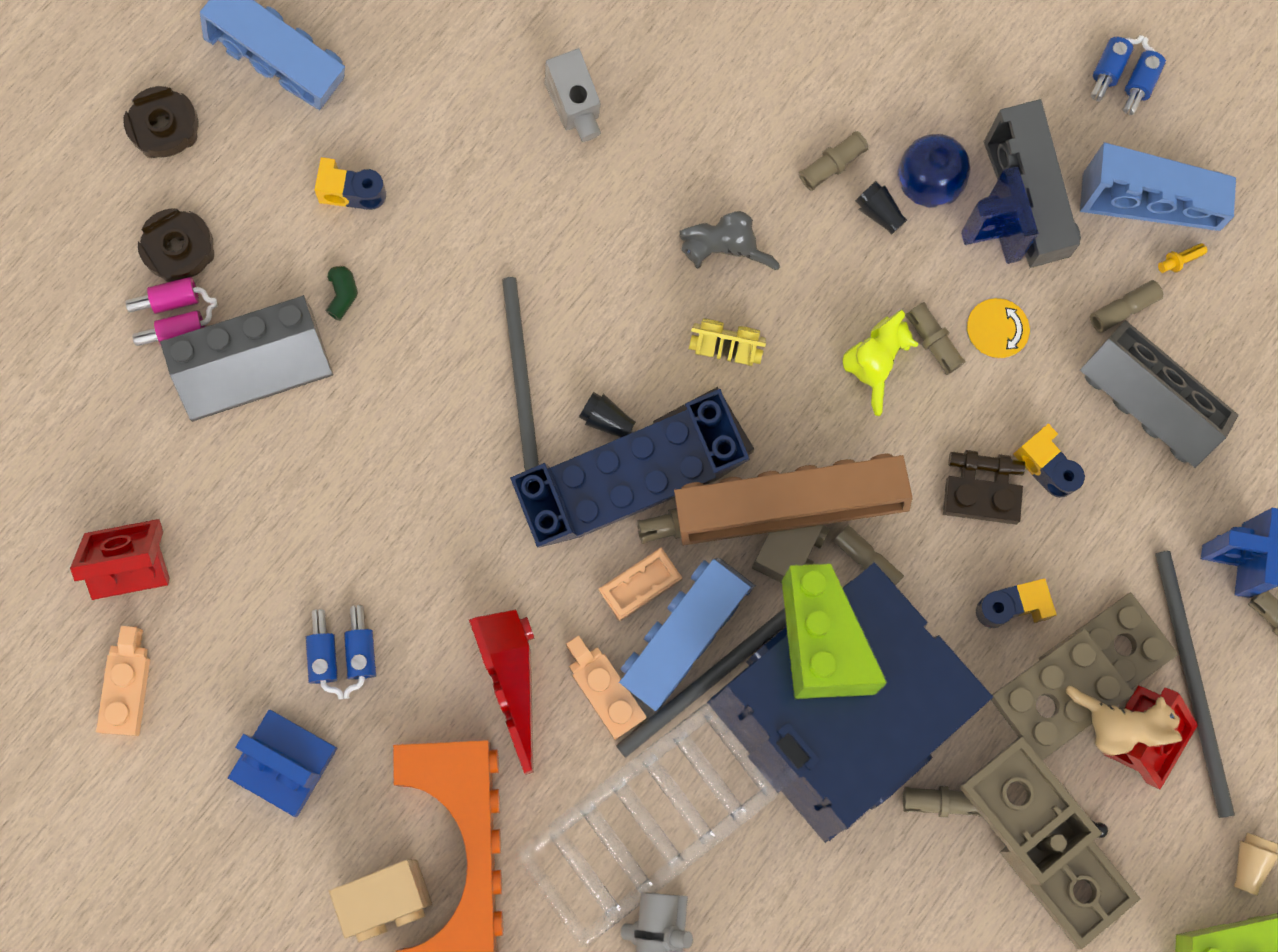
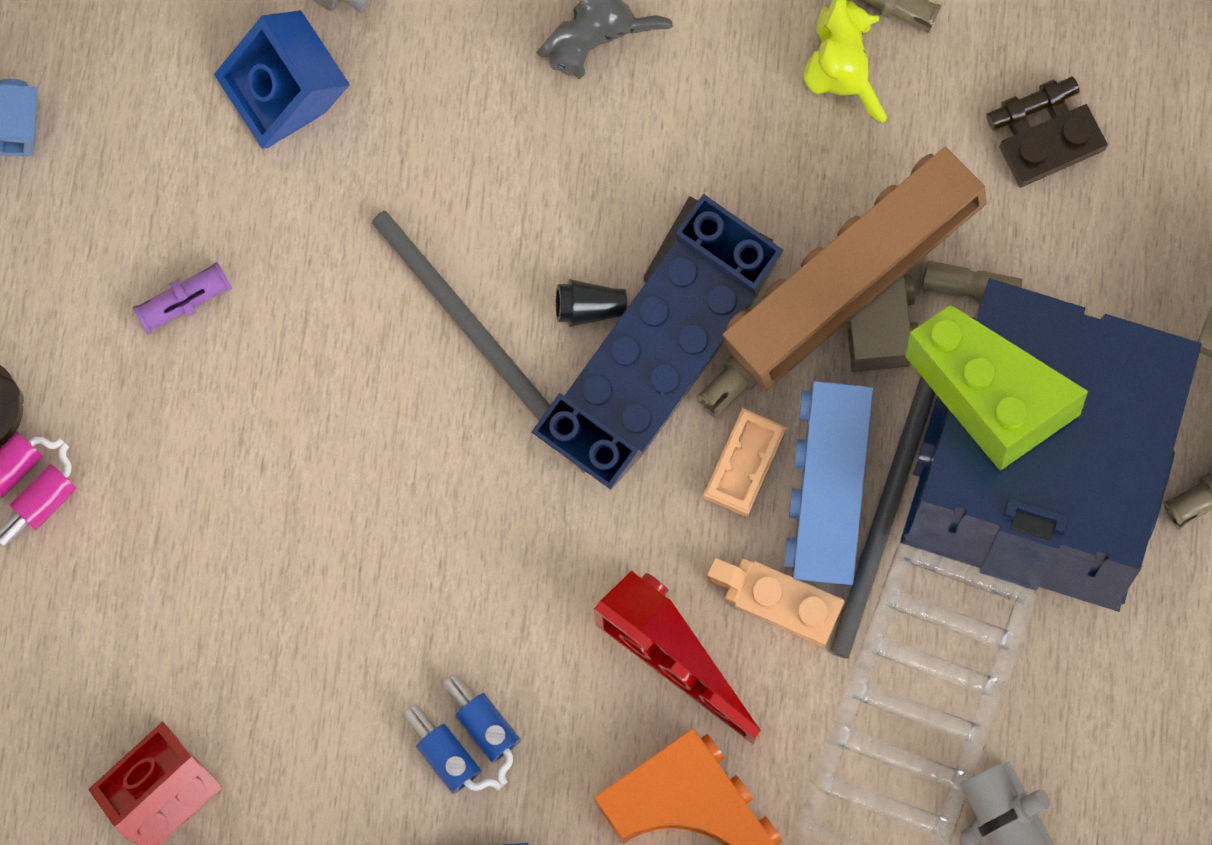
camera: 25 degrees left, 0 degrees up
(246, 358) = (145, 482): slope -> none
(345, 291) = (203, 340): dark green arm -> none
(349, 188) = (130, 223): leg -> none
(350, 255) = (182, 298): none -> medium lavender pin
(504, 151) = (281, 77): none -> blue slope
(747, 338) = (687, 122): light yellow hinge -> none
(1016, 601) = (1156, 233): leg -> none
(1049, 464) = (1100, 63): leg -> none

